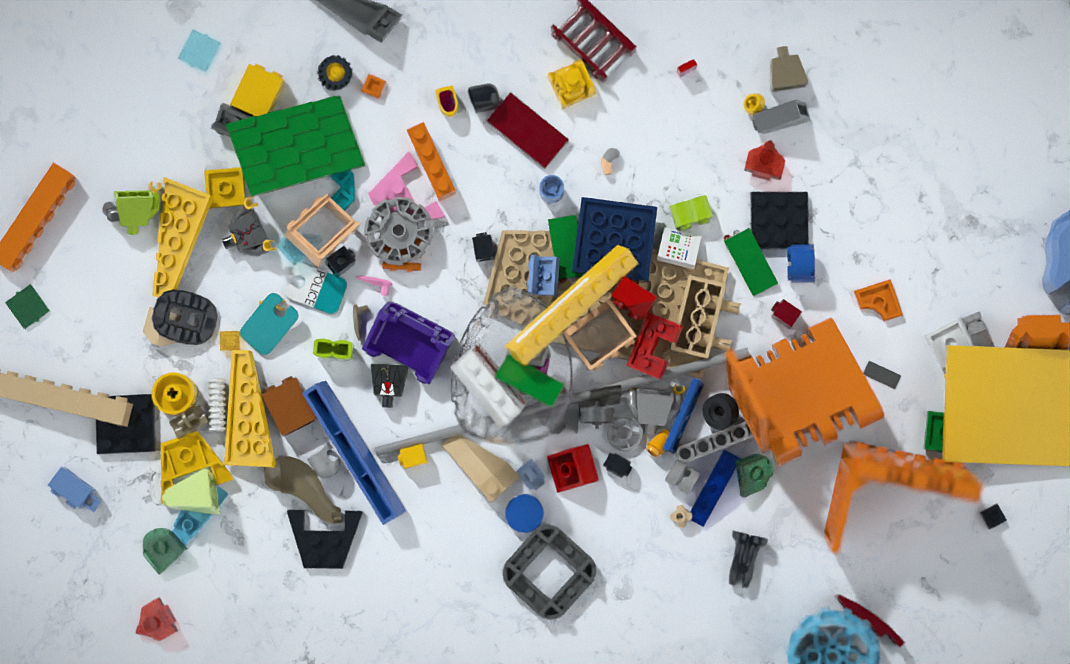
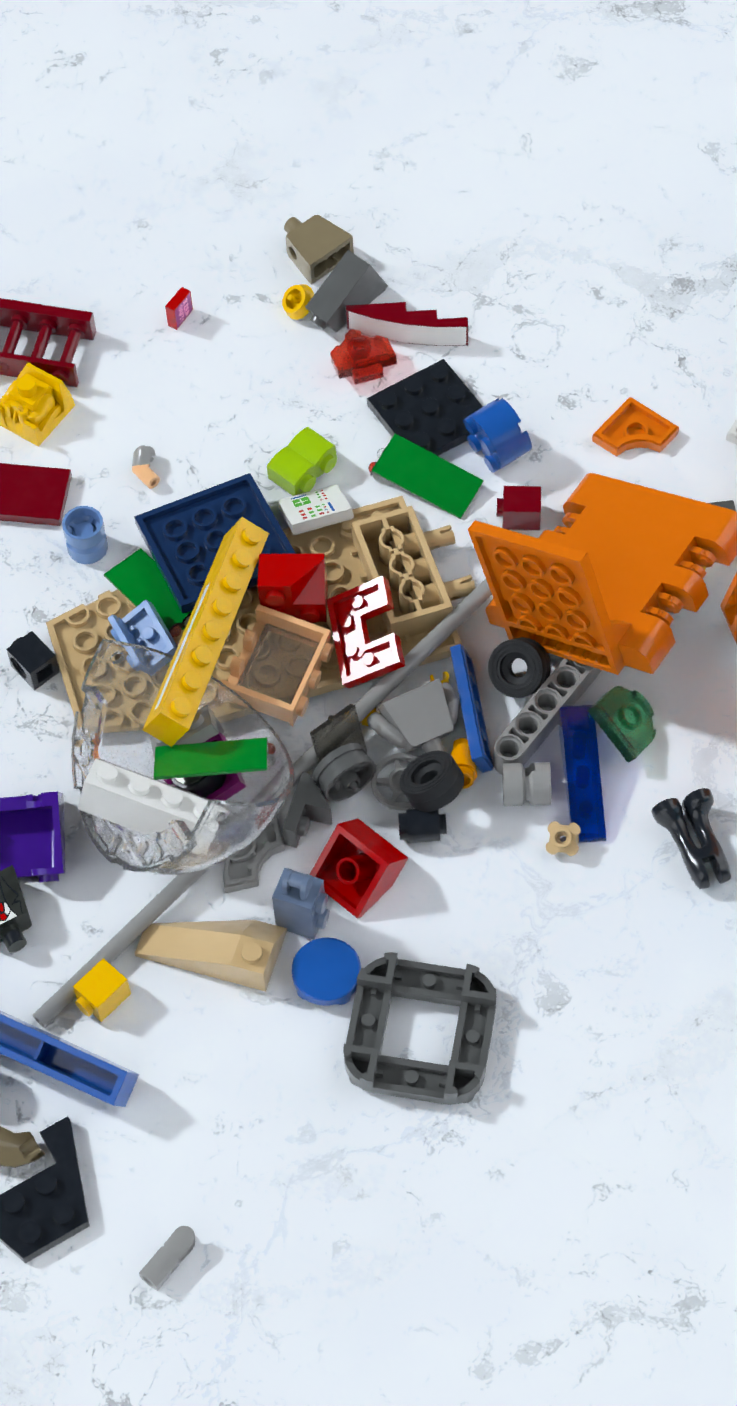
camera: 30 degrees left, 25 degrees down
(368, 609) = (168, 1257): none -> light grey bar
(638, 459) = (431, 781): none -> black tyre
(796, 152) = (405, 326): none -> slope

